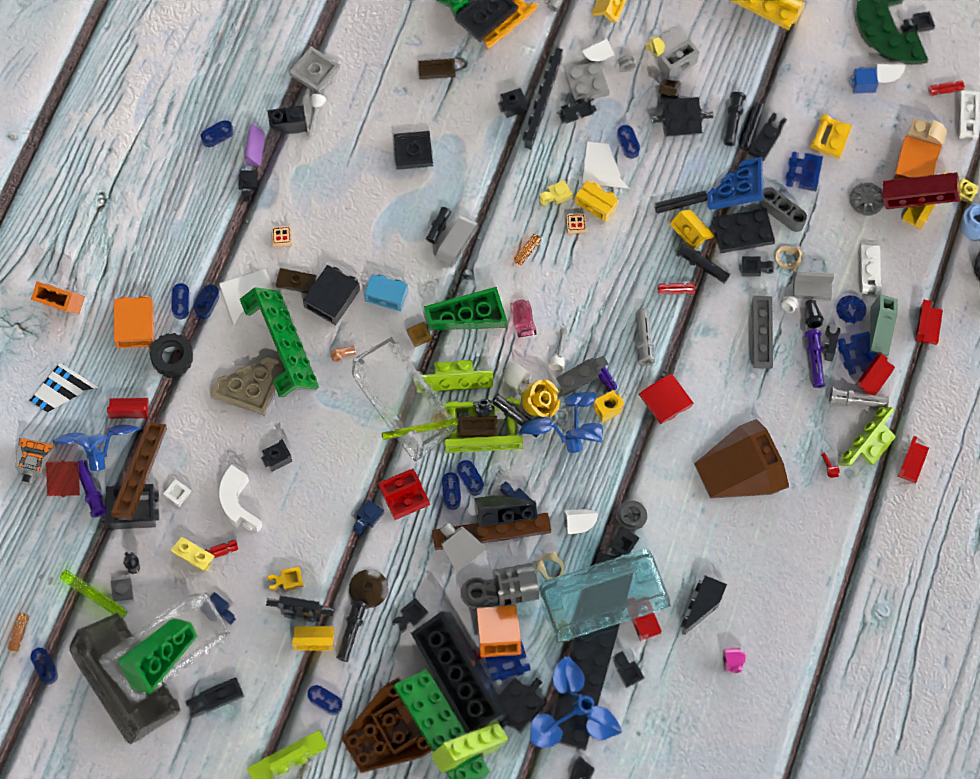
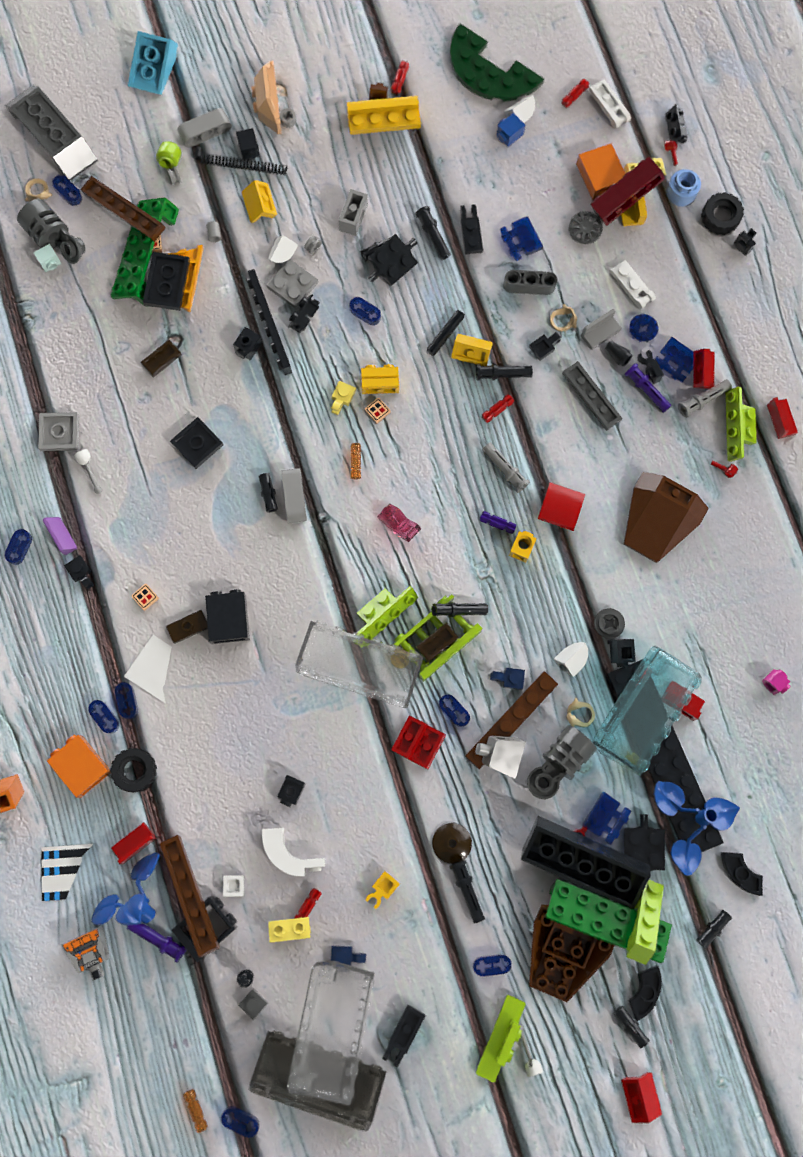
camera: 40 degrees left, 10 degrees up
(63, 478) = (127, 949): clear red piece -> none
(93, 594) = (232, 1027): clear neon green axle -> none
(157, 654) = (337, 1049): green wedge -> none
(249, 386) = (222, 746): dark tan plate -> none
(284, 335) = (220, 685): green bracket -> none
(288, 119) = (71, 492): black slope -> none
(302, 608) = (408, 913): black plate -> none
(313, 638) = (442, 920): yellow panel -> none
(338, 353) = (274, 660): nougat arm -> none
(368, 515) = (405, 781): dark blue plate -> none
(386, 292) = (270, 582): dark azure brick -> none
(412, 614) = (505, 838): black plate -> none
(419, 334) = (325, 598): pearl gold plate -> none
(420, 428) = (394, 682): clear neon green bar -> none
(466, 480) = (463, 684): clear blue beam -> none
(469, 311) = (356, 545): green wedge -> none
(483, 407) = (430, 623): black plate -> none
(498, 631) = (586, 801): brick -> none
(502, 510) = (509, 698): black slope -> none
(517, 377) = (431, 575): white brick -> none
(540, 399) = (467, 582): yellow cylinder -> none
(558, 362) = (453, 538): white hinge -> none
(573, 437) = (533, 585): blue plant -> none
(581, 374) = (481, 536): dark grey hinge -> none
(601, 166) = (359, 348): white sticker -> none
(629, 672) = (707, 753): black plate -> none
(655, 45) = (327, 213): light yellow plate -> none
(670, 87) = (365, 241): dark brown plate -> none
(708, 599) = (720, 651): black slope -> none
(739, 187) = (483, 287): blue plate -> none
(743, 230) = (511, 322): black plate -> none
(752, 126) = (451, 229): black axle -> none
(789, 304) = (594, 357): white plate -> none
(836, 139) = (524, 193): yellow plate -> none
(882, 324) = (678, 321): sand green slope -> none
(920, 21) = (514, 51): black plate -> none
(929, 323) = (708, 297): red panel -> none
(930, 132) = (592, 139): tan brick -> none

